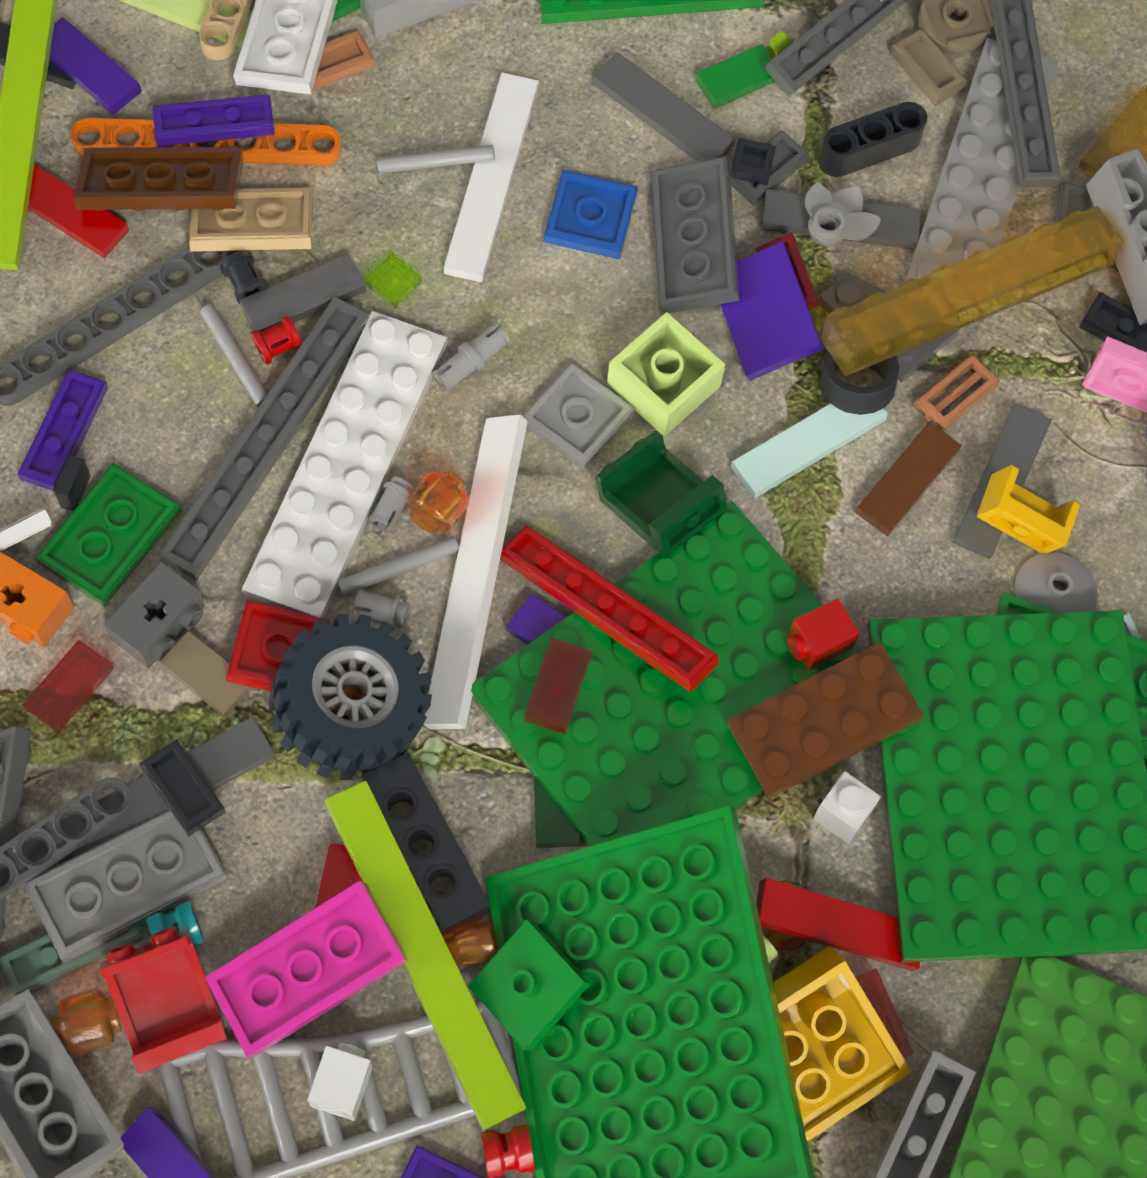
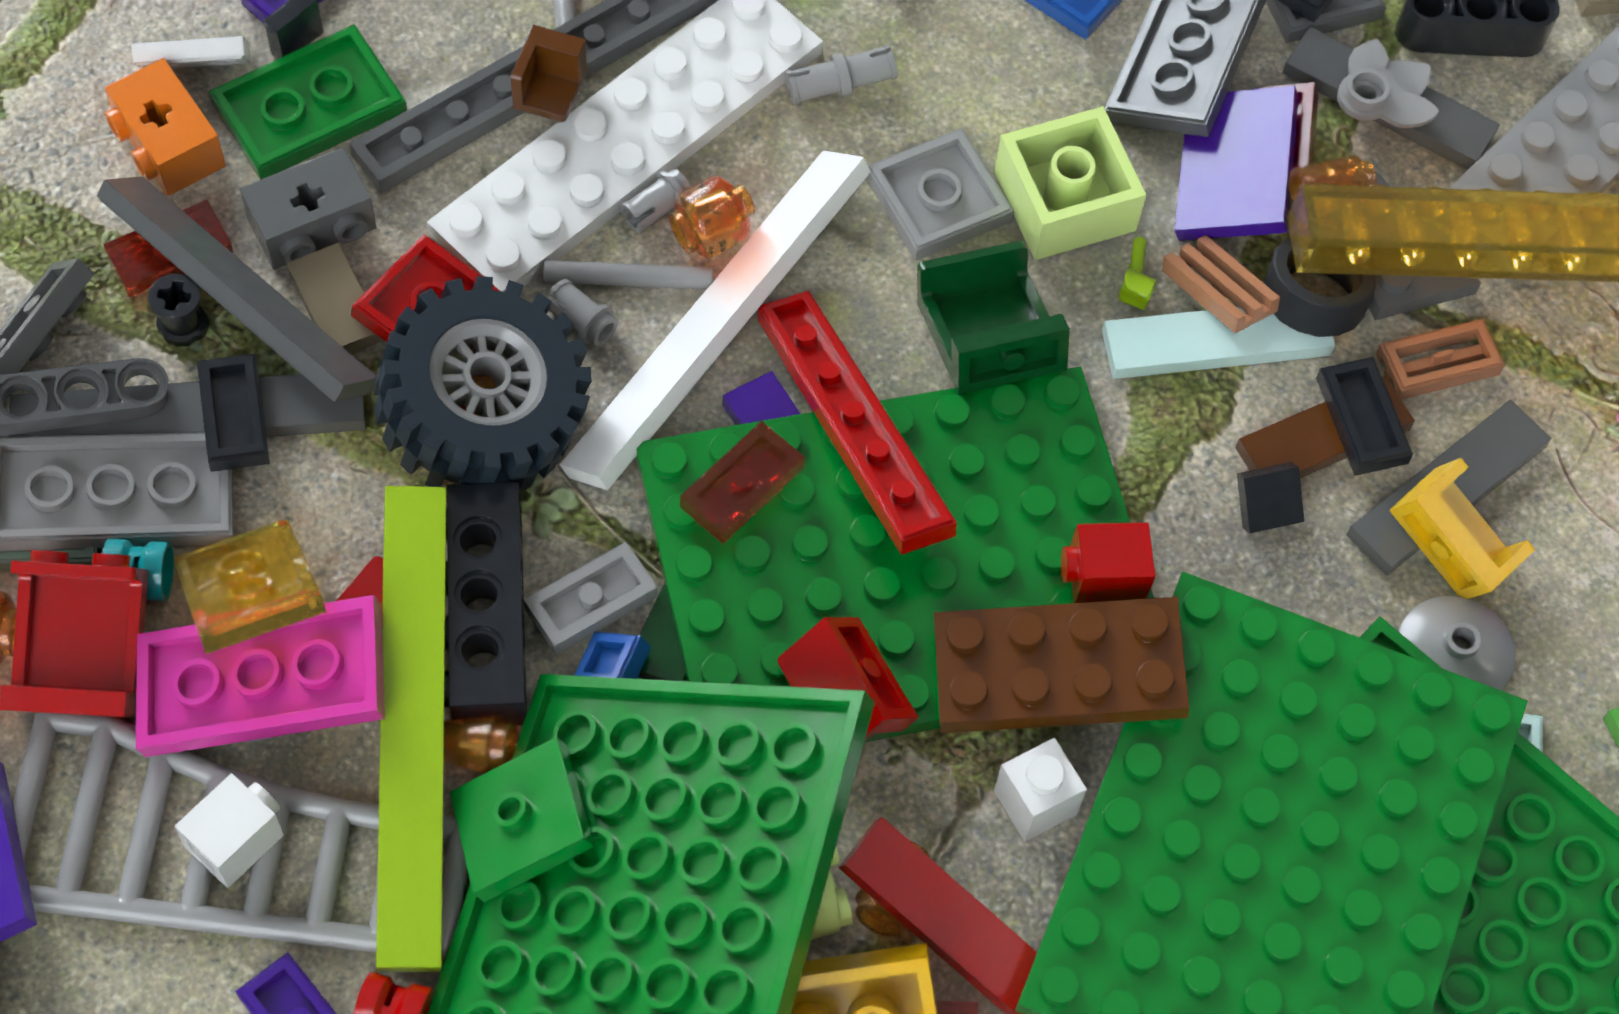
camera: 25 degrees right, 5 degrees down
(91, 726) = (178, 309): none -> black bush
(138, 697) = (237, 288): none -> dark grey tile
(264, 909) = (248, 586): none -> clear yellow tile
(277, 446) = (549, 73): none -> reddish brown panel
(491, 809) = (590, 598): none -> light grey plate
(527, 845) = (614, 656): none -> blue tile
(689, 788) = (844, 657): none -> red panel
(739, 427) = (1136, 286): none -> lime hand
(799, 398) = (1227, 280): none -> nougat tile
(842, 294) = (1339, 171): none -> clear orange cone
(896, 539) = (1270, 497): none -> black tile
(930, 457) = (1364, 416): none -> black tile

